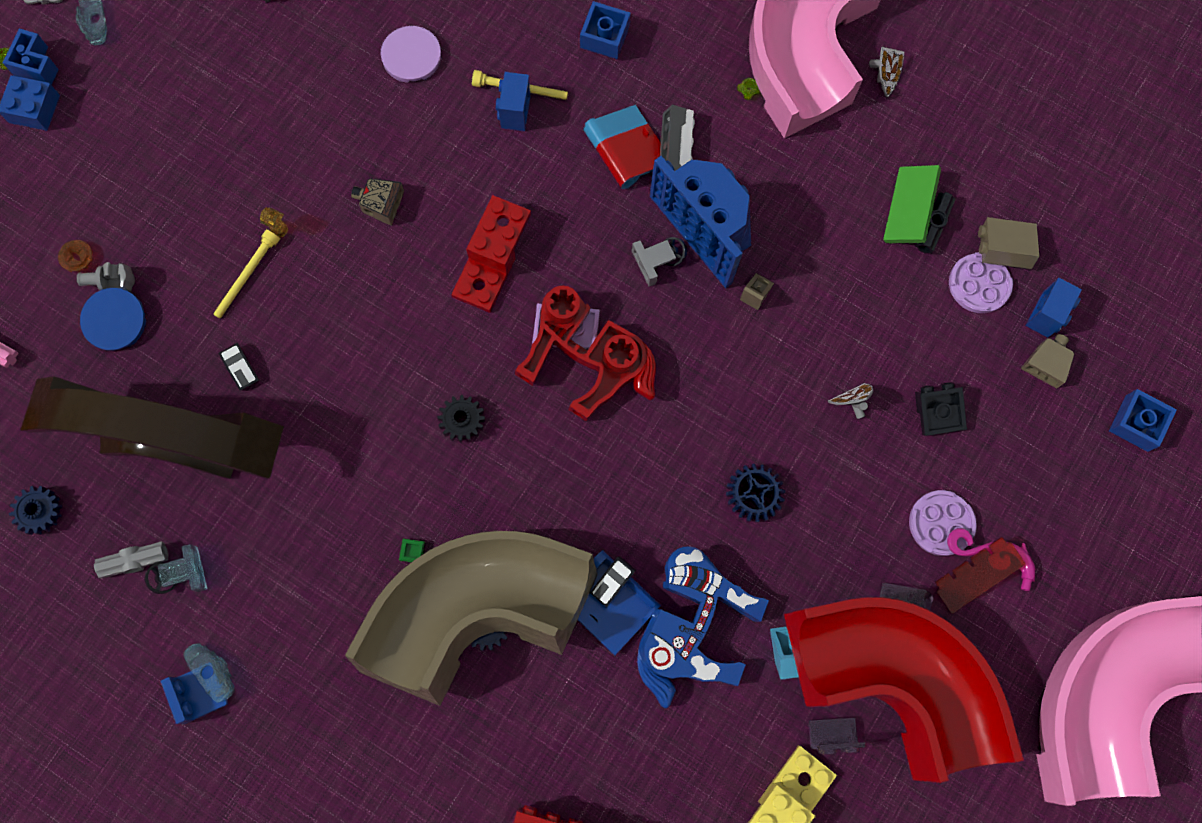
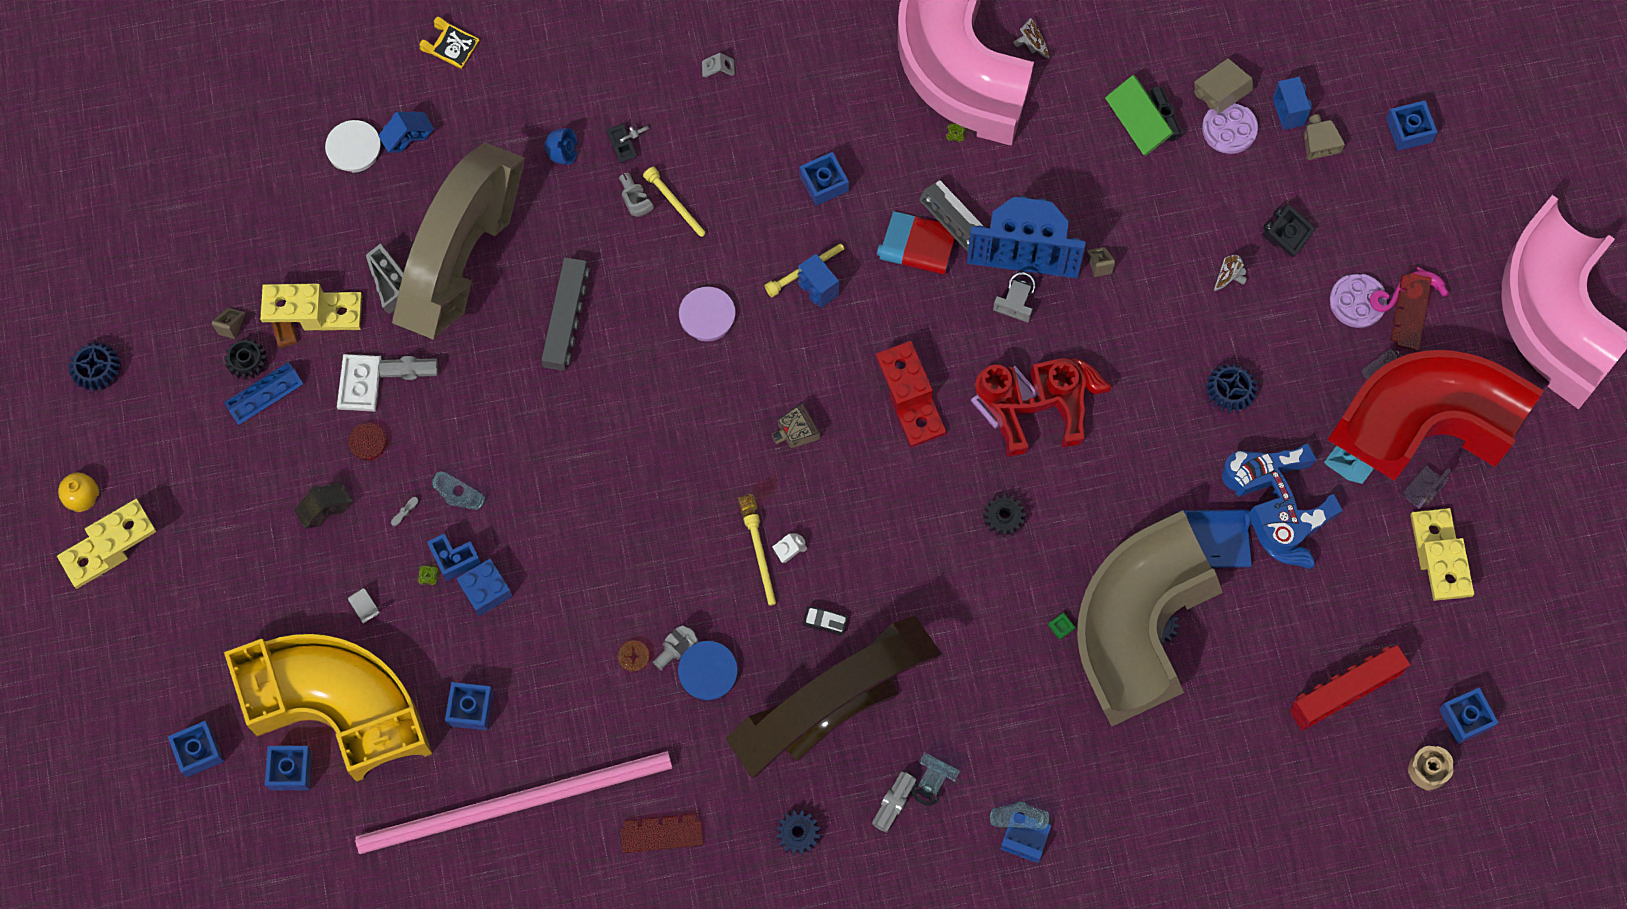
camera: 40 degrees left, 5 degrees down
(276, 284) = (789, 547): none -> white bracket
(612, 581) = (1205, 521): slope -> none

